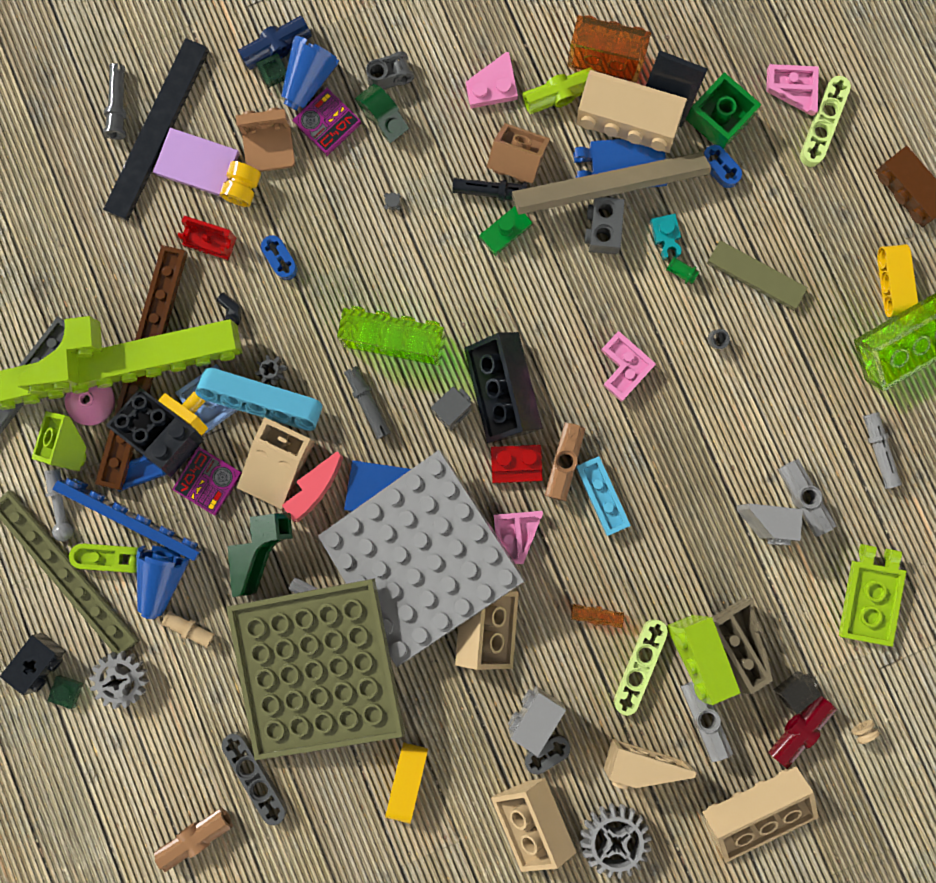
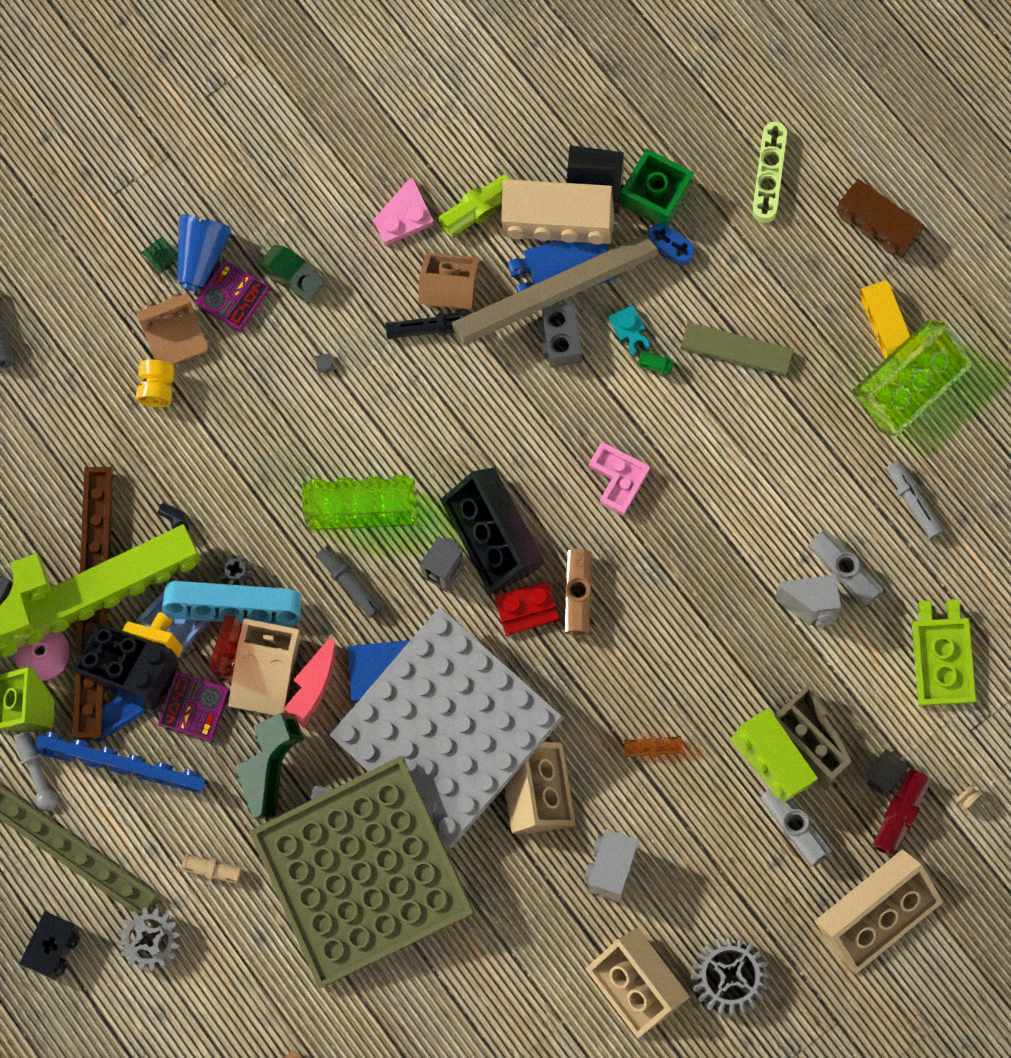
camera: 15 degrees left, 10 degrees down
(65, 692) = (91, 970): clear green plate -> none
(103, 557) = (102, 814): lime plate -> none
(155, 129) = (47, 347): black tile -> none
(157, 579) = (166, 822): blue cone -> none
(194, 161) = (99, 371): lavender tile -> none
(207, 238) = (132, 448): red hinge -> none
(241, 441) = (225, 648): none -> clear red plate
(249, 780) = (319, 1013): dark grey beam -> none
(274, 41) = (155, 224): dark blue piece -> none
(283, 255) = (211, 455): blue beam -> none
(390, 70) = (293, 225): dark grey piece -> none
(406, 783) = (489, 972): yellow beam -> none
(505, 230) = (454, 365): green tile -> none
(517, 532) = (546, 676): bright pink wing -> none
(552, 759) = (640, 911): dark grey beam -> none
(602, 496) = (627, 619): medium azure plate -> none
(608, 48) = (518, 151): clear orange brick -> none
(641, 767) = (732, 886): tan slope -> none
(644, 668) = (713, 789): yellowish green beam -> none
(722, 337) = (714, 421): dark grey hinge -> none
(795, 85) = (727, 143): bright pink wing -> none

